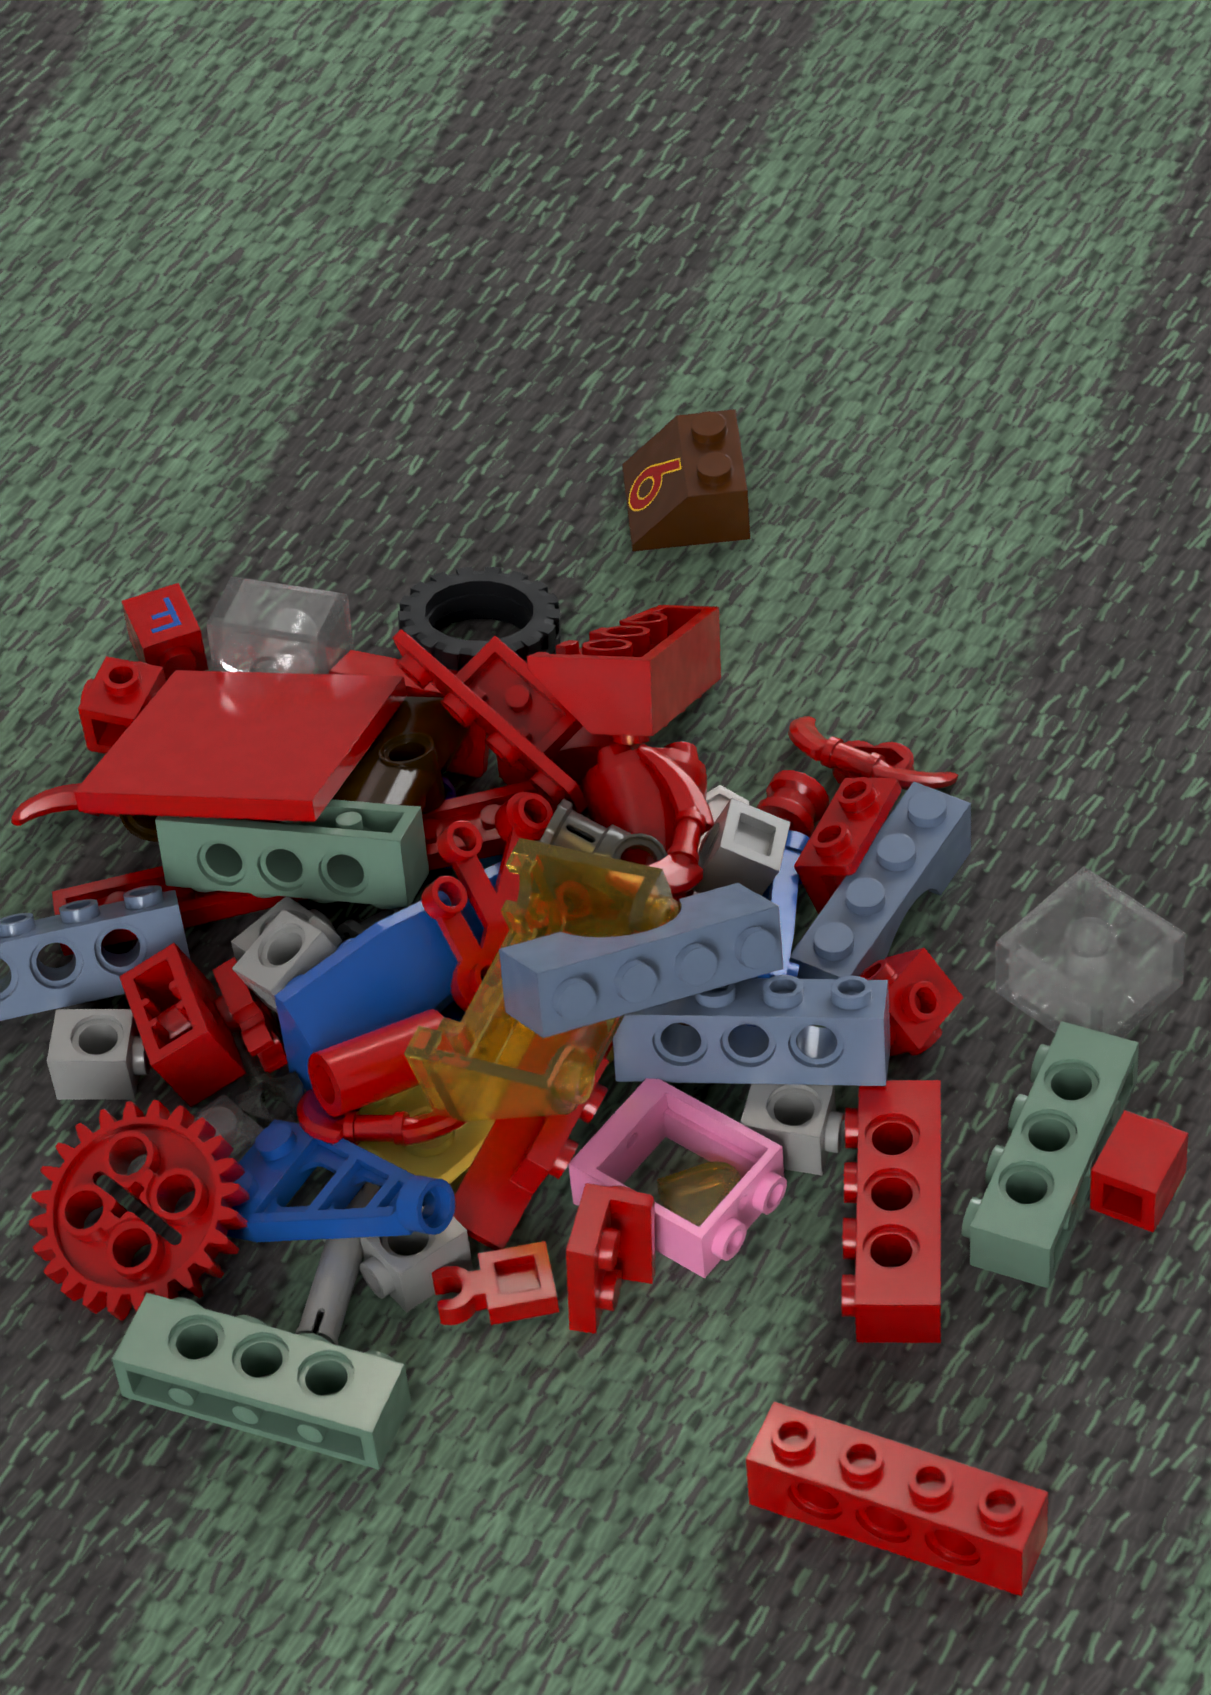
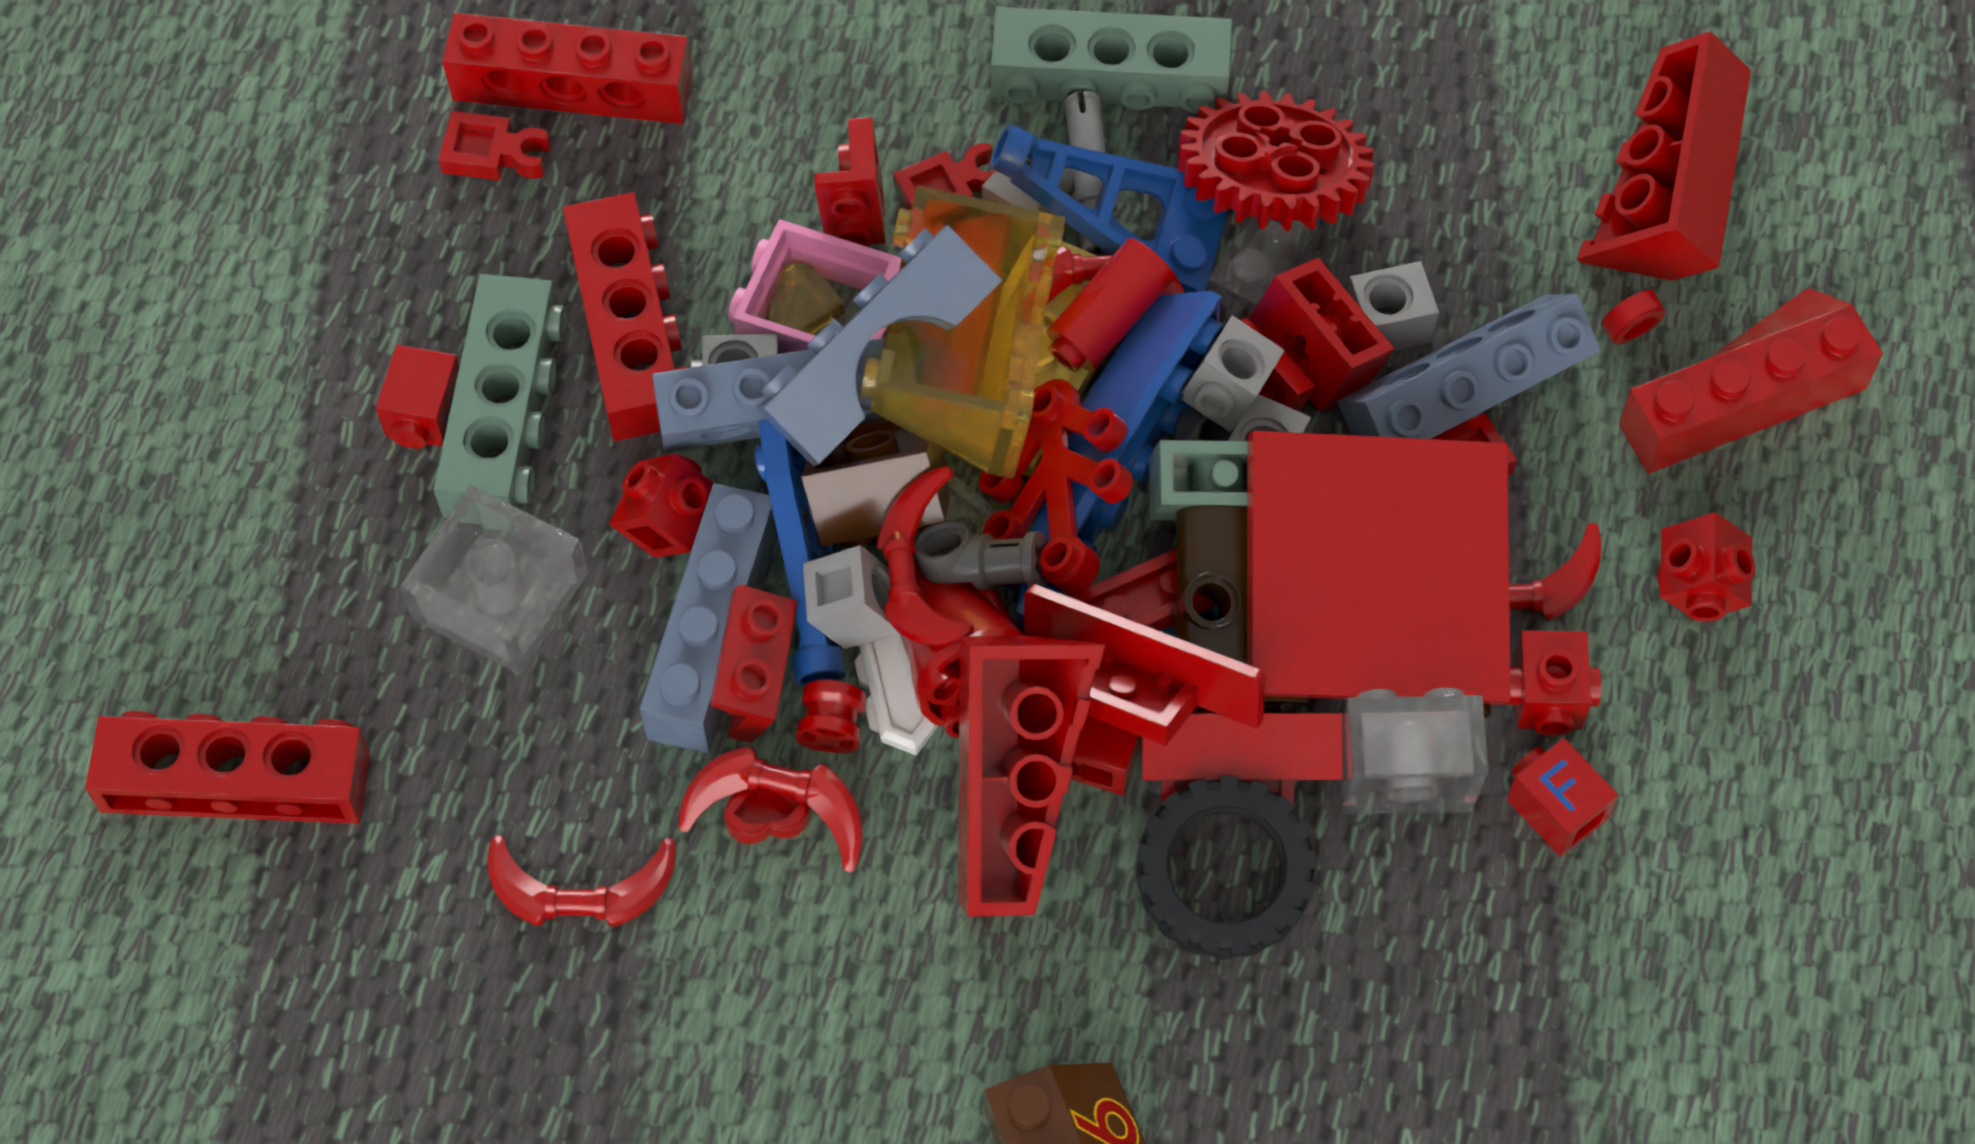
camera: 160 degrees right, 15 degrees up
(1016, 1444) = (486, 144): none -> red plate
(1030, 720) = (615, 904): none -> red piece

